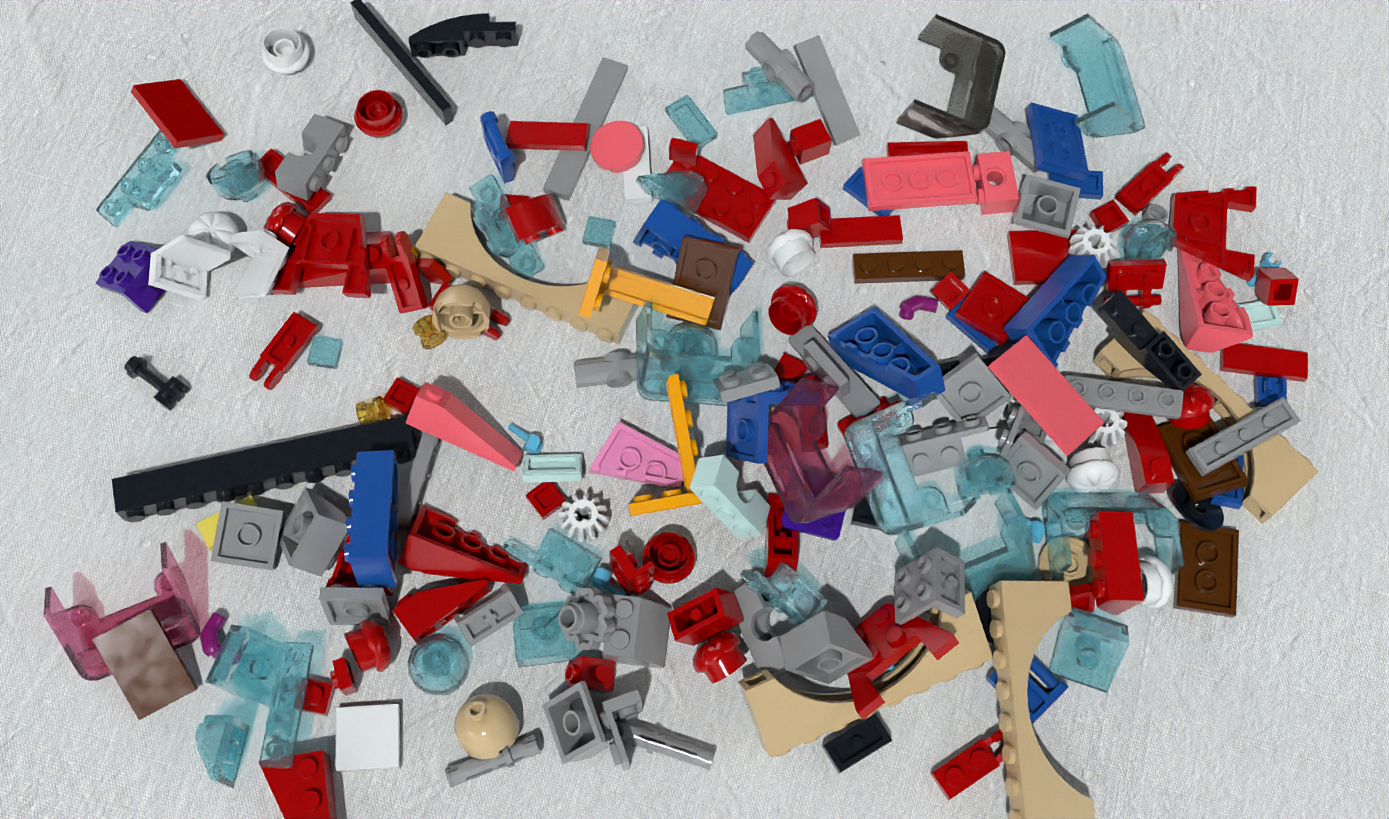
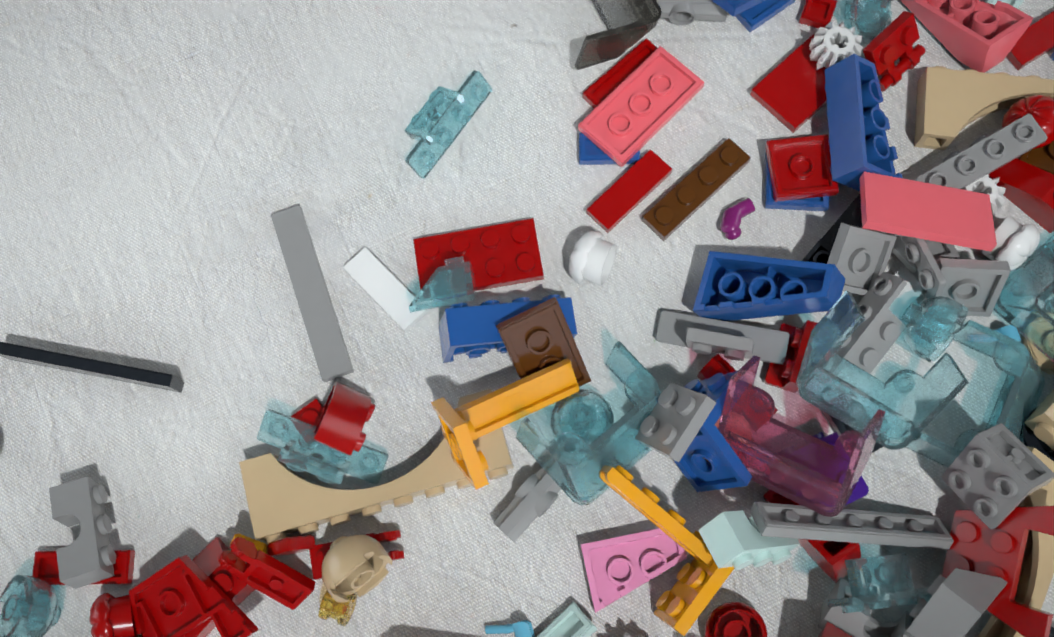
camera: 25 degrees left, 5 degrees up
(378, 114) = (110, 436): red piece -> none
(454, 34) = (116, 304): black slope -> none
(501, 154) = (247, 376): blue plate -> none
(547, 135) = (284, 328): red tile -> none
(599, 232) = (407, 379): clear light blue tile -> none
(617, 146) = (355, 287): coral tile -> none
(683, 151) = (421, 245): red tile -> none
(691, 121) = (399, 211): clear light blue tile -> none
(775, 163) = (507, 189): red slope -> none
(779, 66) = (438, 99): light grey piece -> none
(789, 368) = (679, 365): red tile -> none
(792, 309) = (639, 311): red piece -> none
(805, 547) = (851, 526): none -> light grey tile
(809, 141) = (518, 146): red brick -> none
(810, 216) = (581, 216): red brick -> none
(827, 90) = (494, 88): light grey tile -> none
(950, 291) = (752, 182): red plate -> none
(998, 169) = (699, 41): coral brick -> none
(1046, 206) = (767, 43): light grey slope -> none
(1147, 346) = (963, 98): black slope -> none

